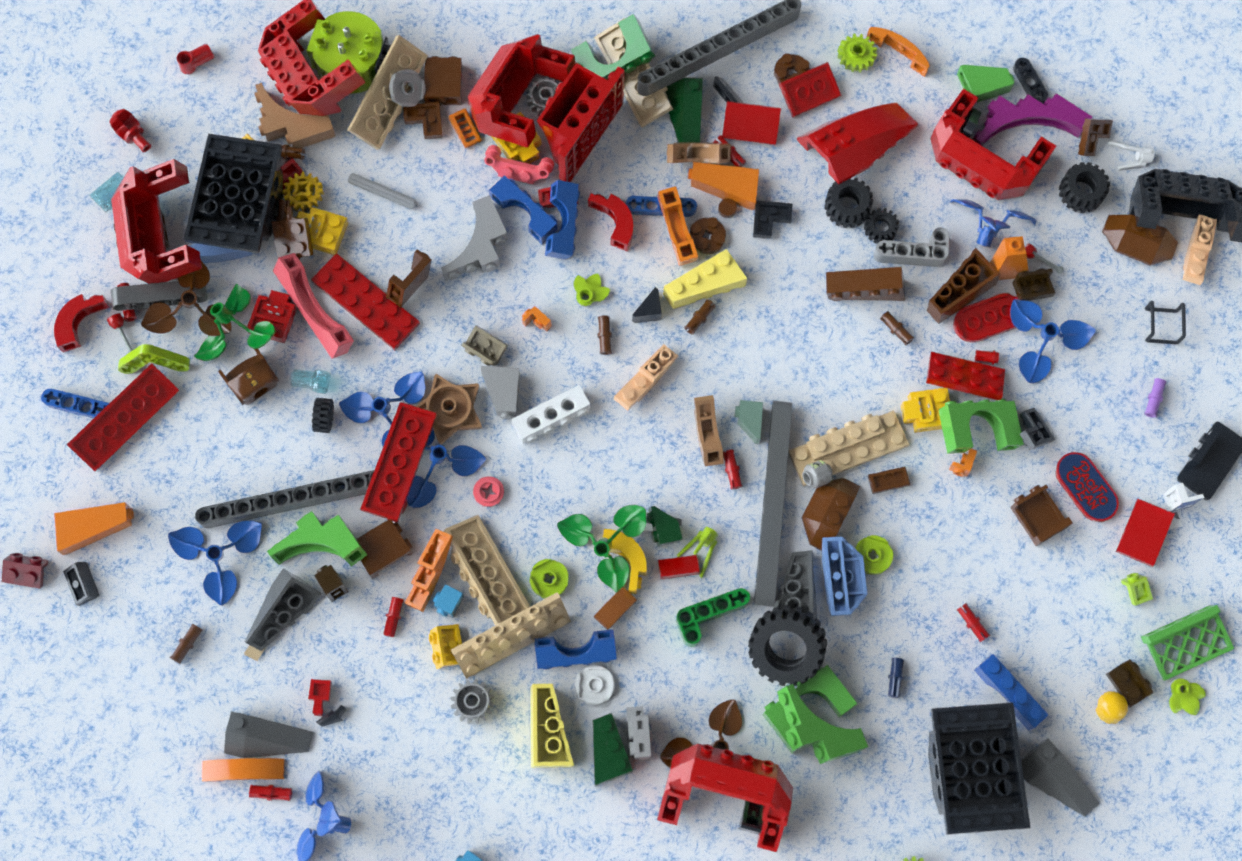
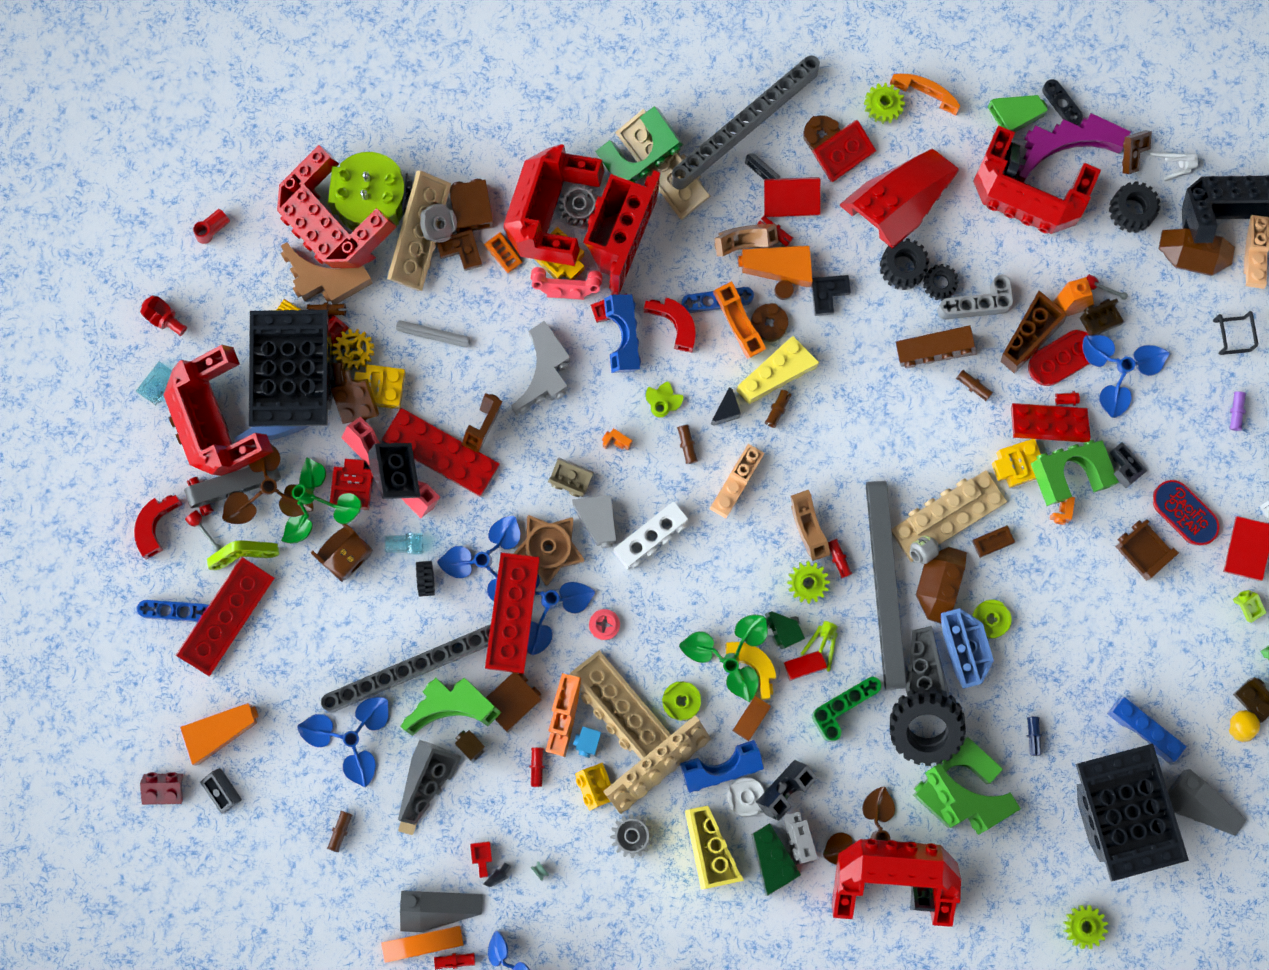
camera: 15 degrees left, 5 degrees up
(314, 305) = (394, 470): none -> black slope
(374, 719) = (540, 871): none -> sand green bush
(508, 194) = (560, 315): blue arch -> none
(646, 674) = (794, 778): none -> black arch
(686, 101) = (725, 201): dark green wedge -> none
(689, 493) = (804, 572): none -> lime gear
(750, 418) = (847, 504): sand green slope -> none
(973, 622) = (1099, 668): red pin -> none
(988, 233) = (1049, 267): blue plant -> none

